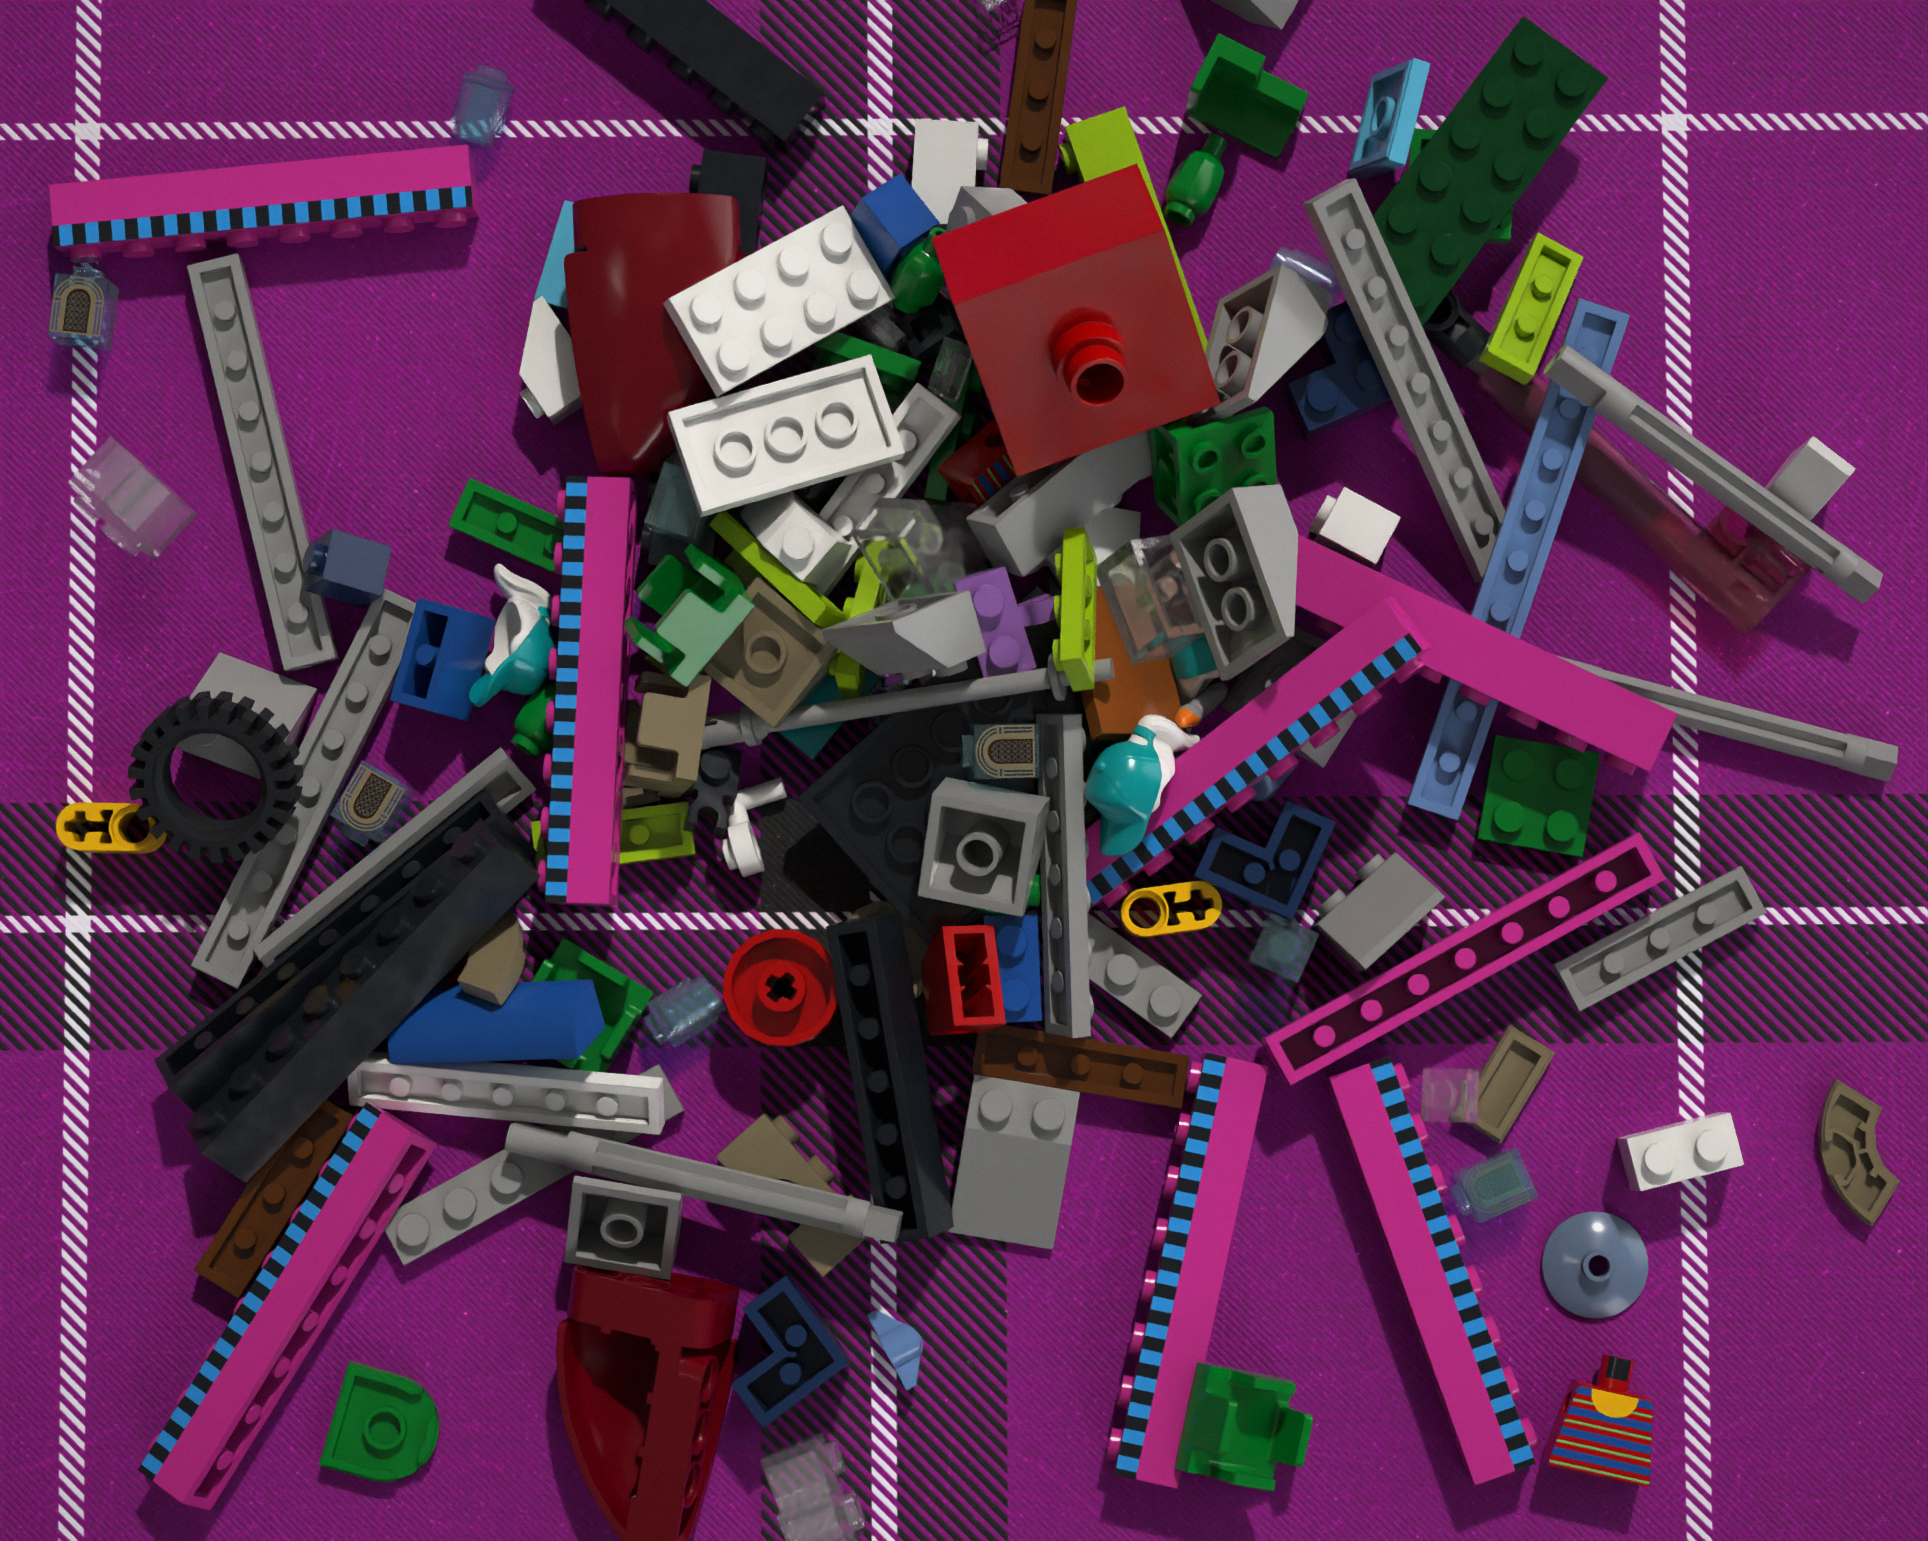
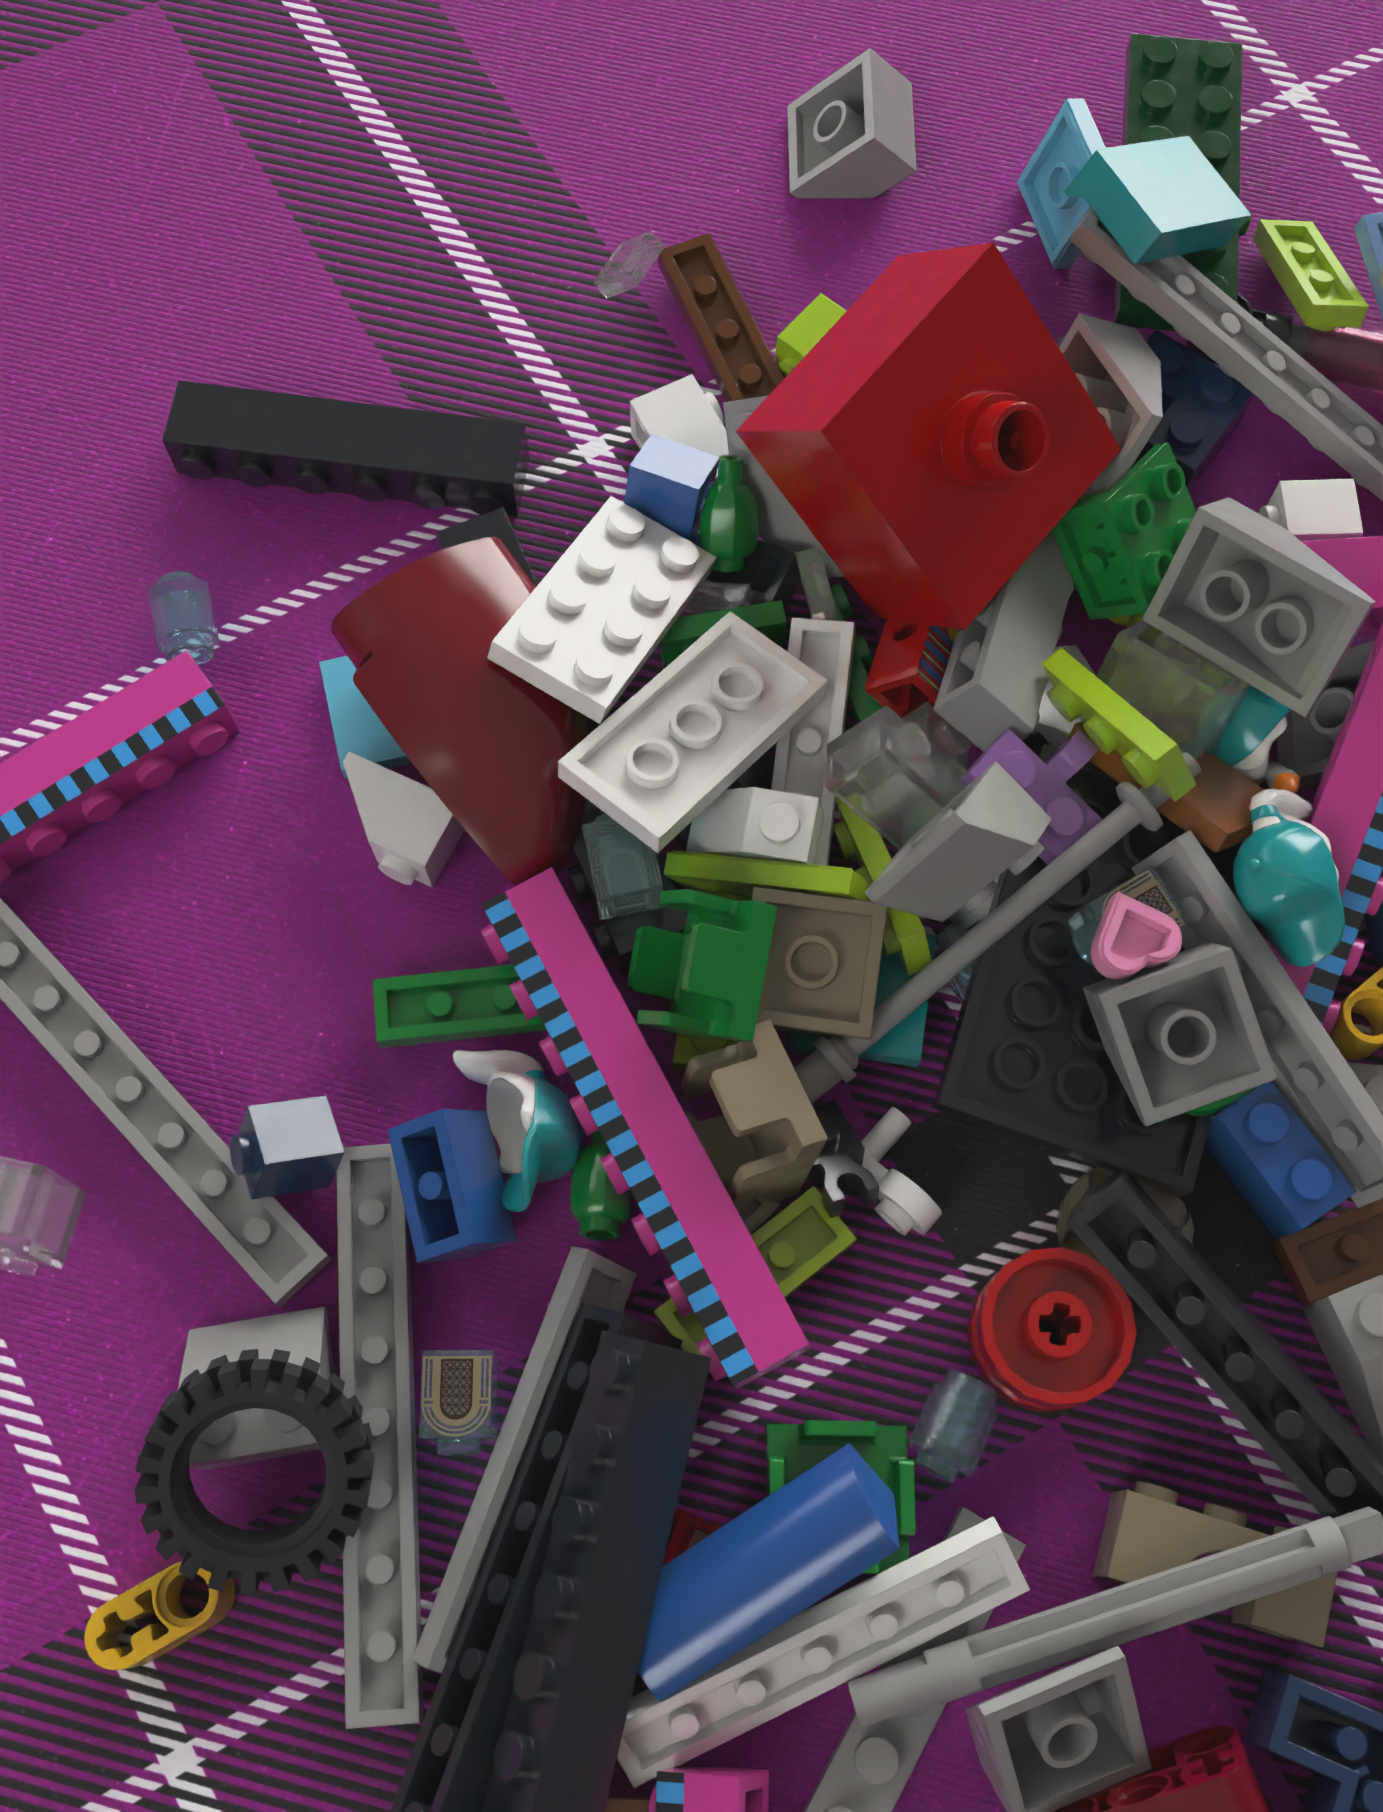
camera: 35 degrees left, 15 degrees down
(495, 961) = (717, 1498): dark tan tile -> none
(963, 990) = (1251, 1199): red torso -> none
(986, 766) = (1133, 938): none -> bright pink tile
(1243, 99) = (907, 220): green panel -> none
(1399, 208) = (1159, 198): none -> container

